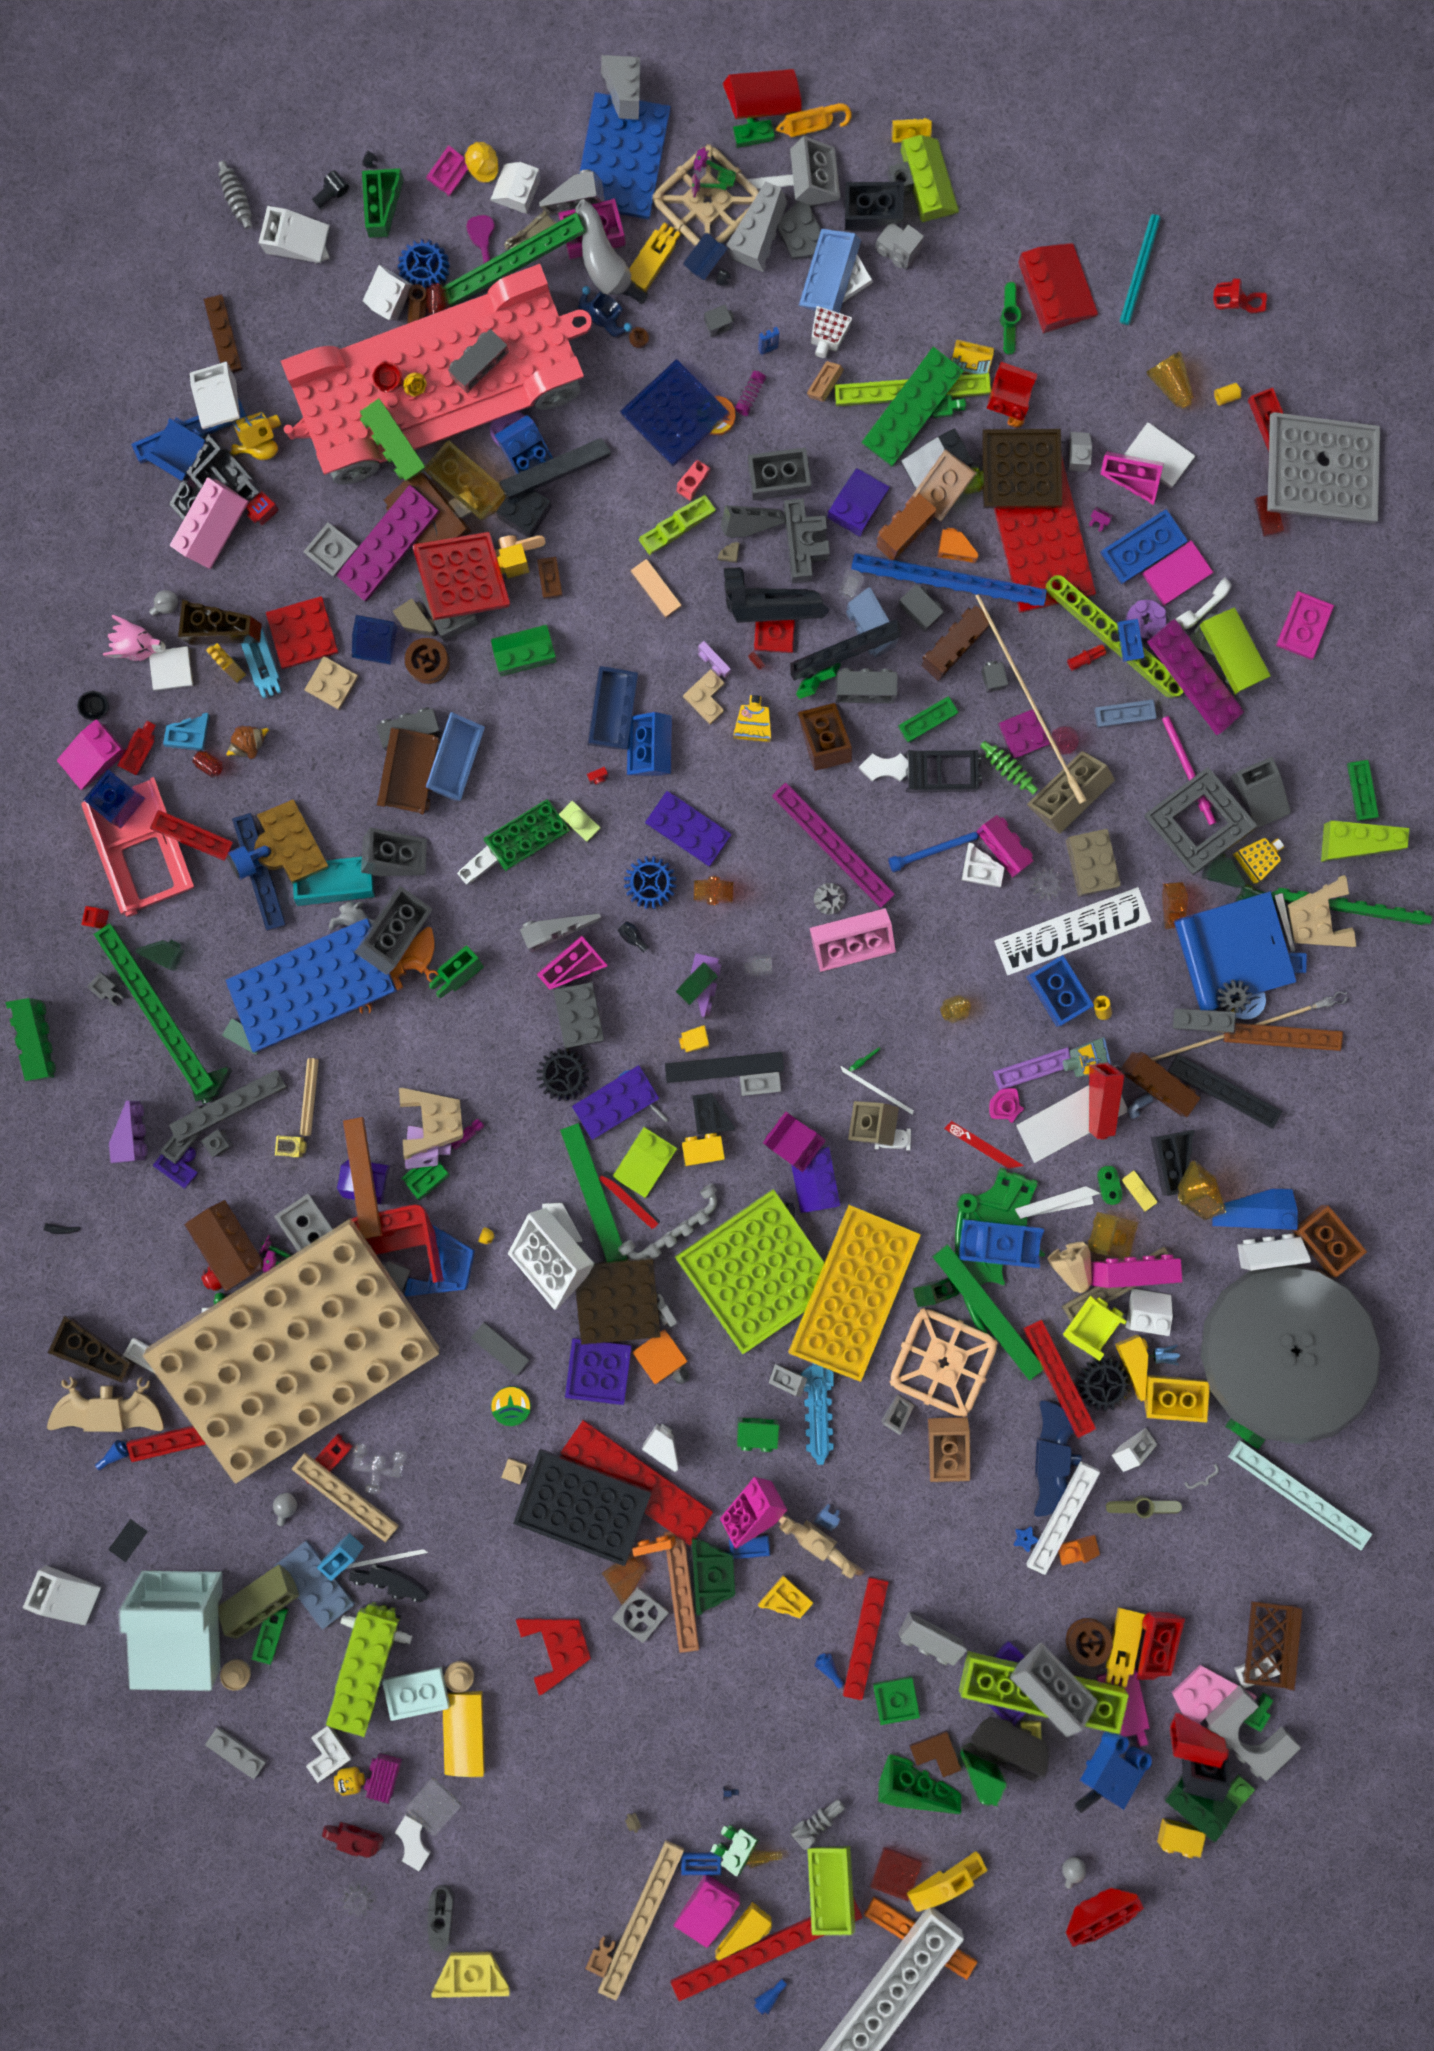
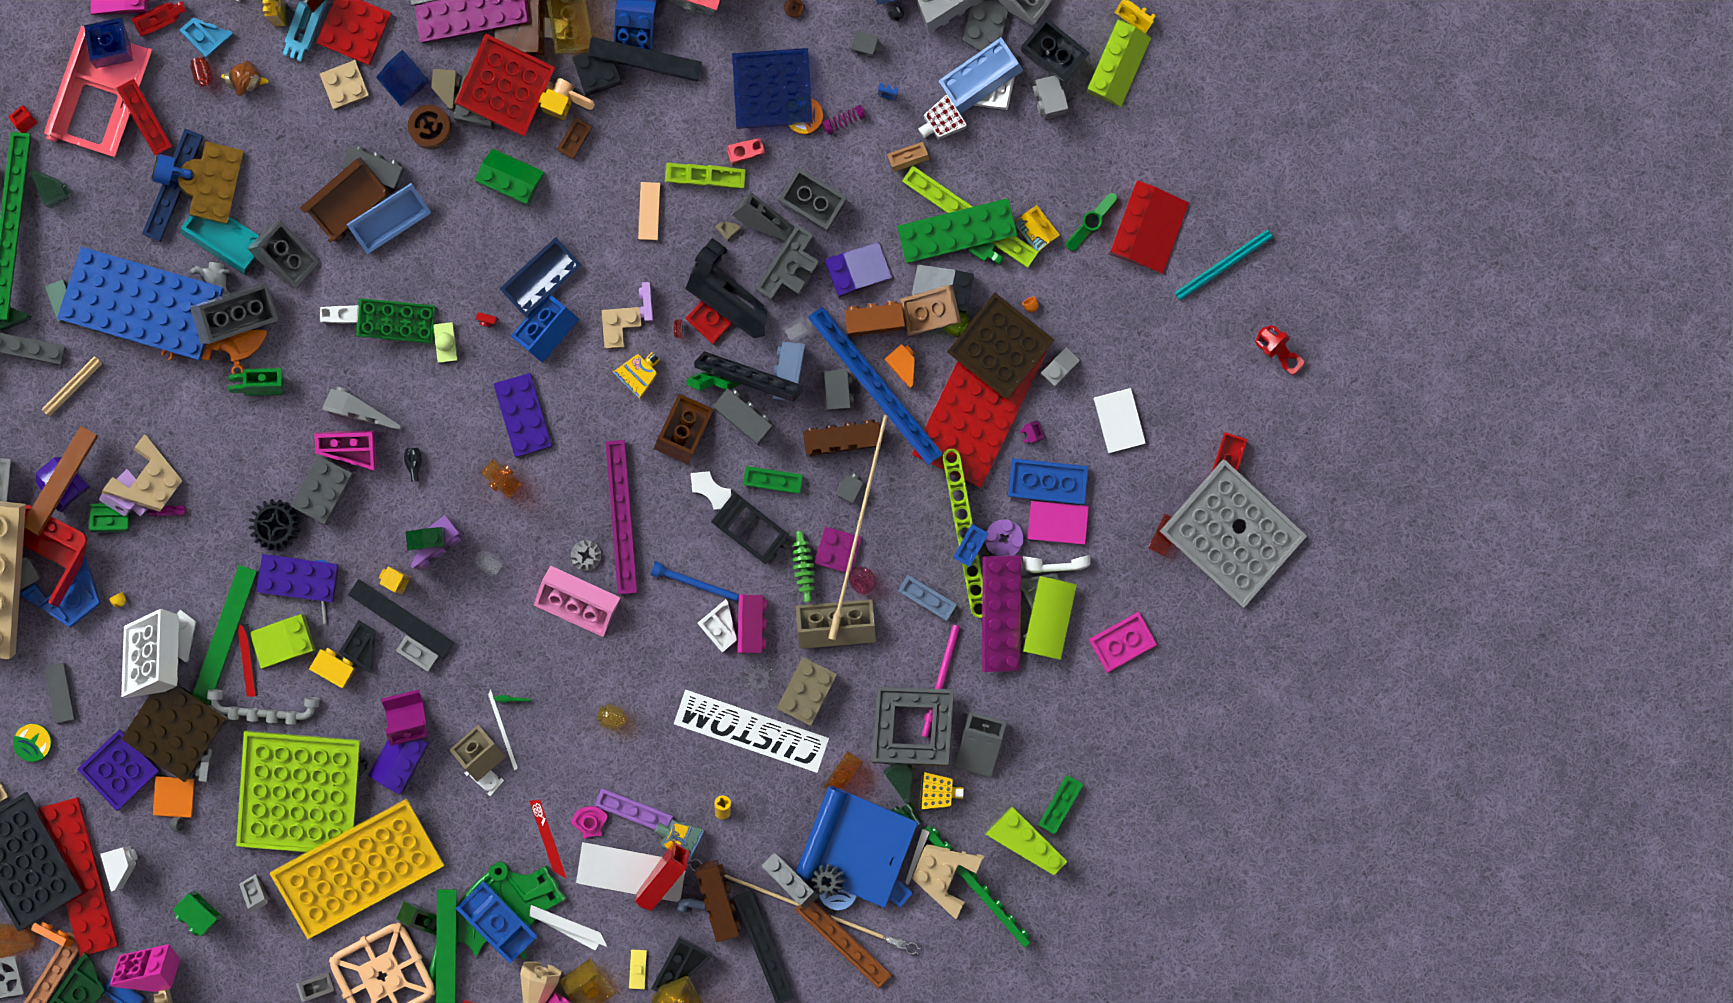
camera: 45 degrees right, 0 degrees up
(290, 1146) = (27, 412): brick -> none
(643, 889) = (458, 423): blue gear -> none
(817, 1385) = (273, 914): dark azure bar -> none
(901, 171) = (1099, 40): dark grey brick -> none
(1011, 391) = (1041, 280): red panel -> none
(1059, 991) = (700, 768): blue brick -> none
(1086, 657) = (934, 530): red axle -> none
(1109, 1185) = (618, 946): green plate -> none
(1133, 473) = (1084, 419): dark pink wedge -> none
(1173, 380) = (1175, 371): clear yellow cone -> none
(1227, 393) = (1210, 416): yellow piece -> none

